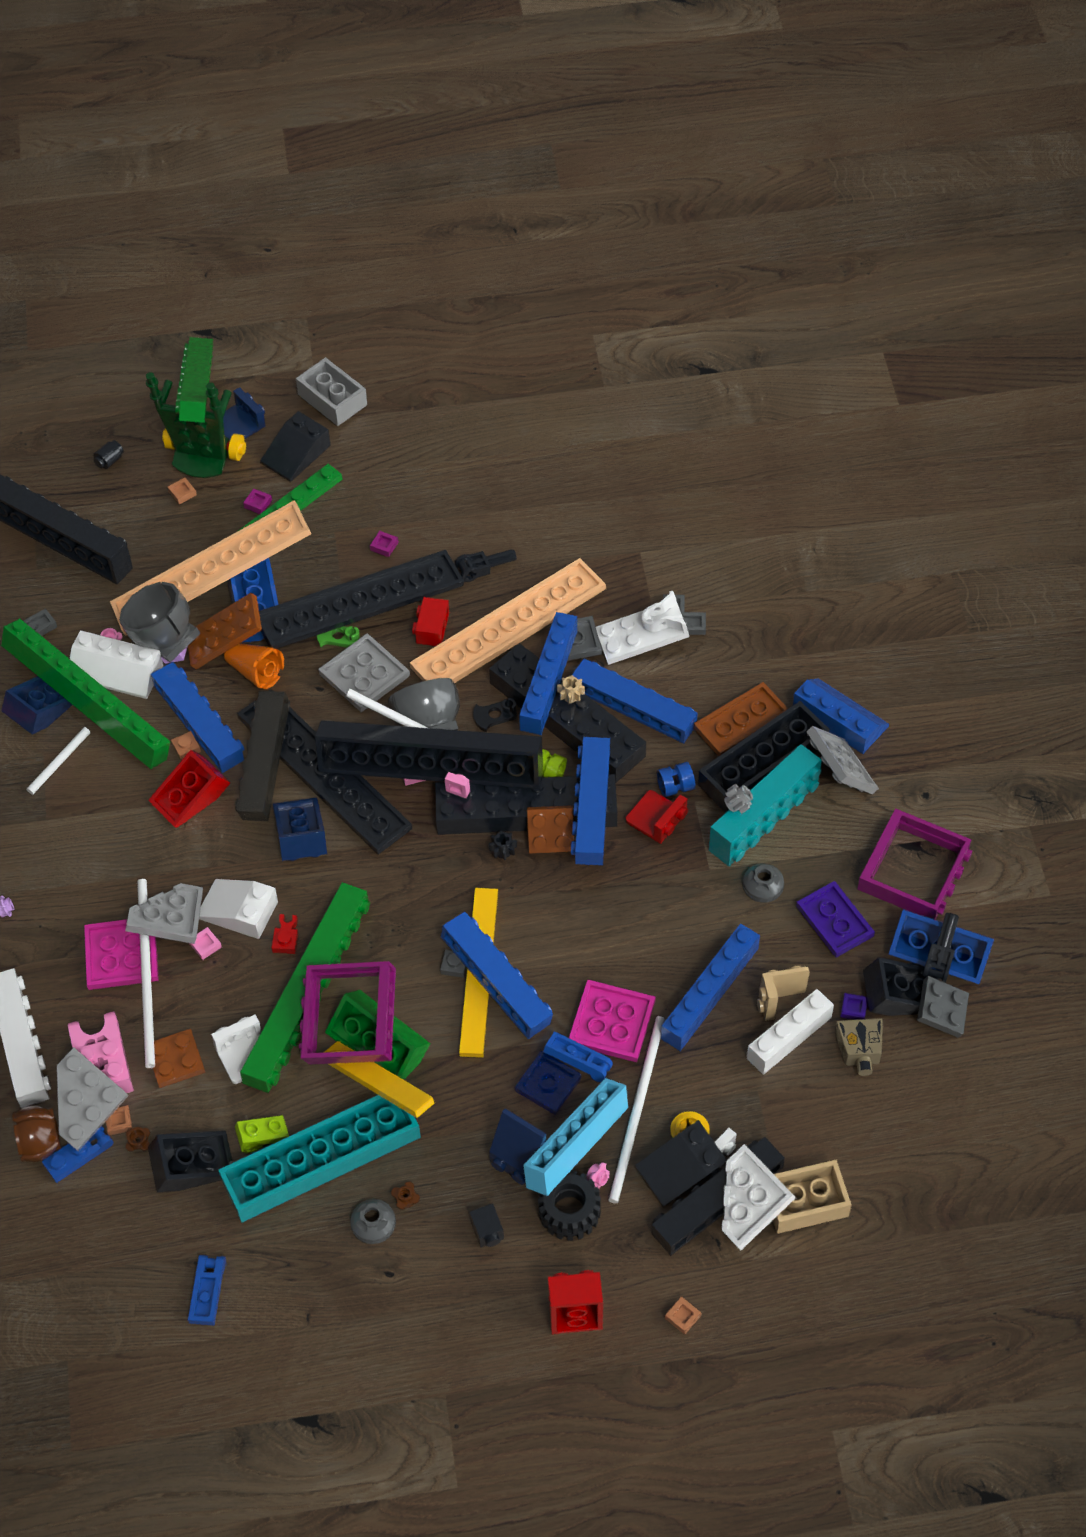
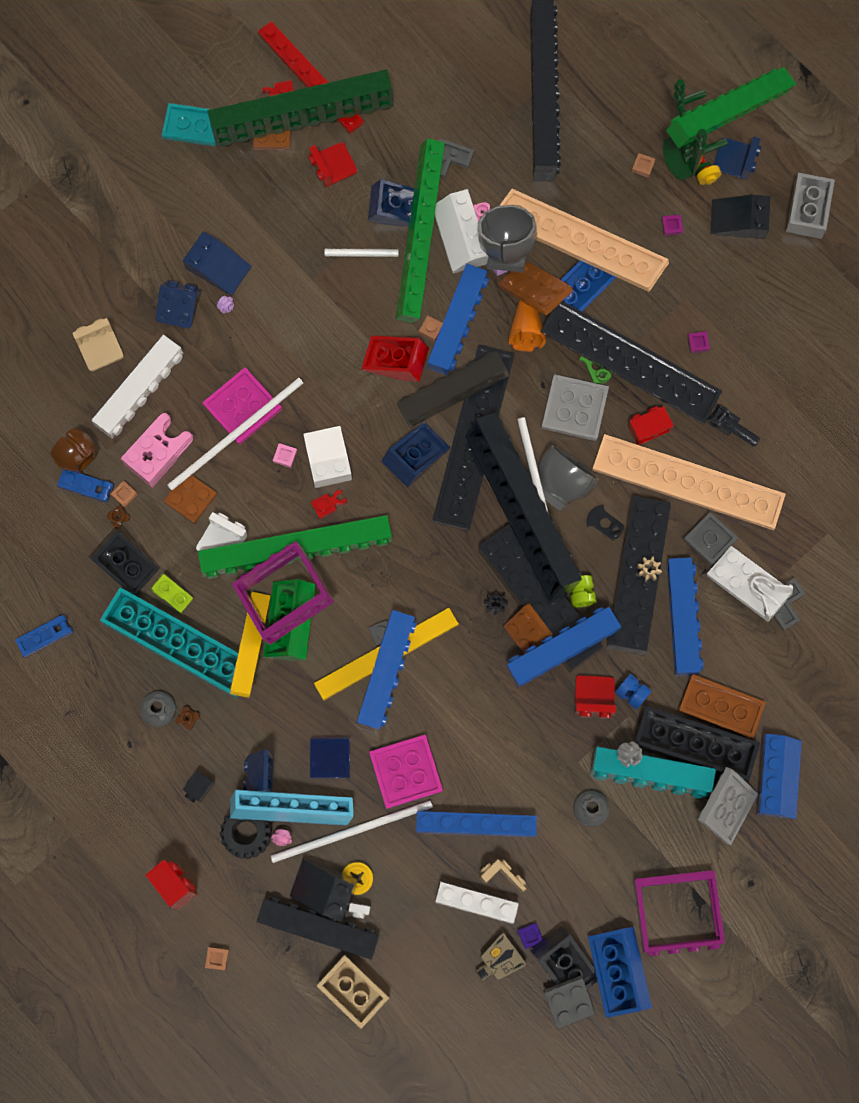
camera: 55 degrees right, 20 degrees up
(84, 1098) = (115, 464): light grey plate -> none
(108, 454) = (637, 90): black brick -> none
(168, 914) = (286, 417): light grey plate -> none
(306, 491) = (689, 250): green plate -> none
(457, 784) = (512, 542): bright pink plate -> none
(548, 673) = (652, 543): blue brick -> none
(578, 1056) = (361, 766): blue plate -> none
(751, 1197) = (322, 955): white plate -> none
(835, 919) = (593, 880): dark purple plate -> none
(940, 954) = (606, 978): black connector -> none

